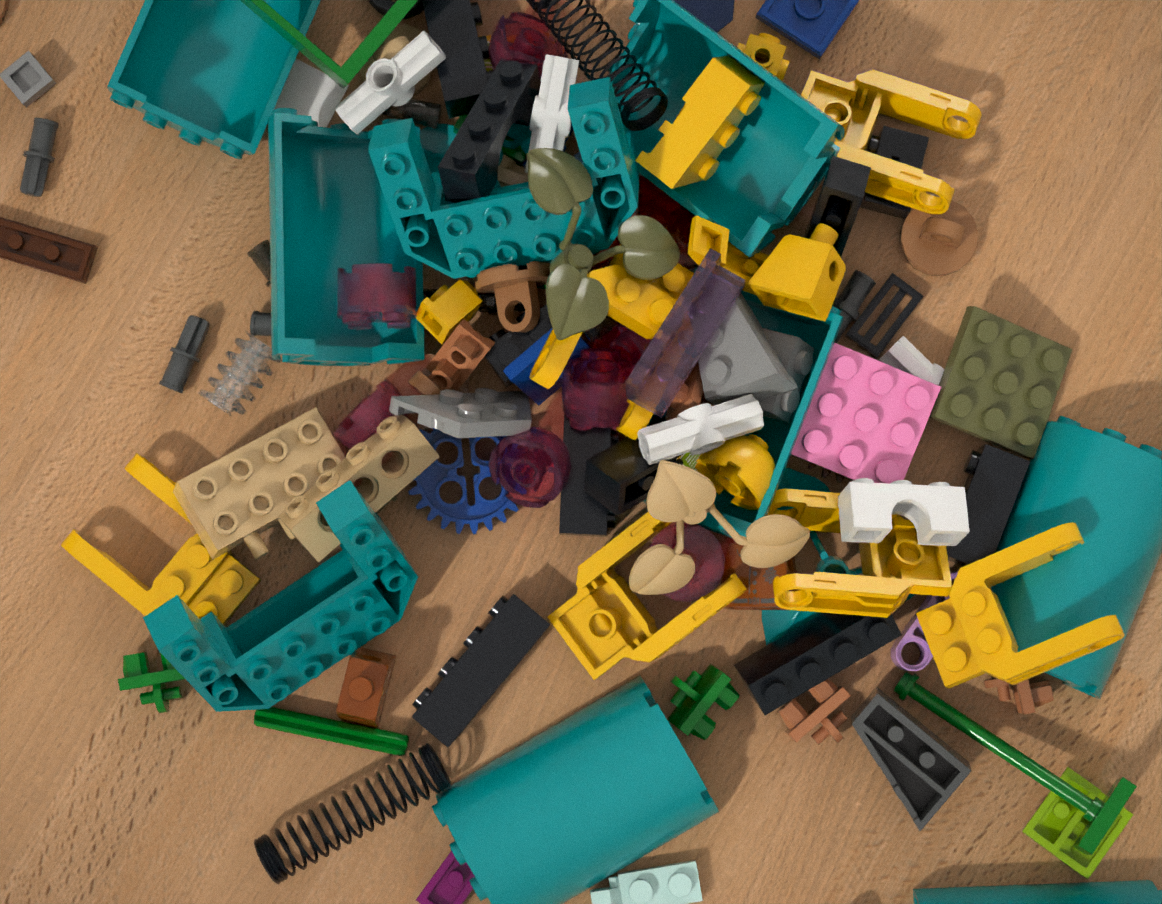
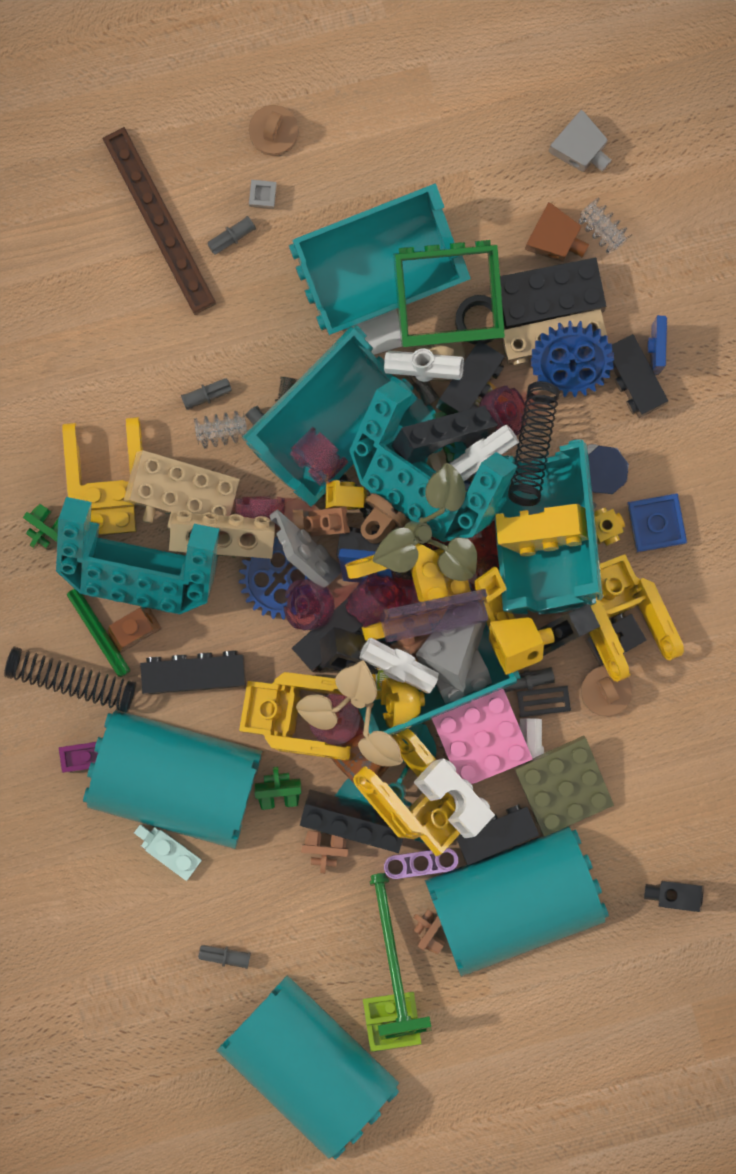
camera: 45 degrees right, 0 degrees up
(910, 755) = (346, 911): dark grey wedge -> none
(973, 634) = (431, 881): yellow plate -> none

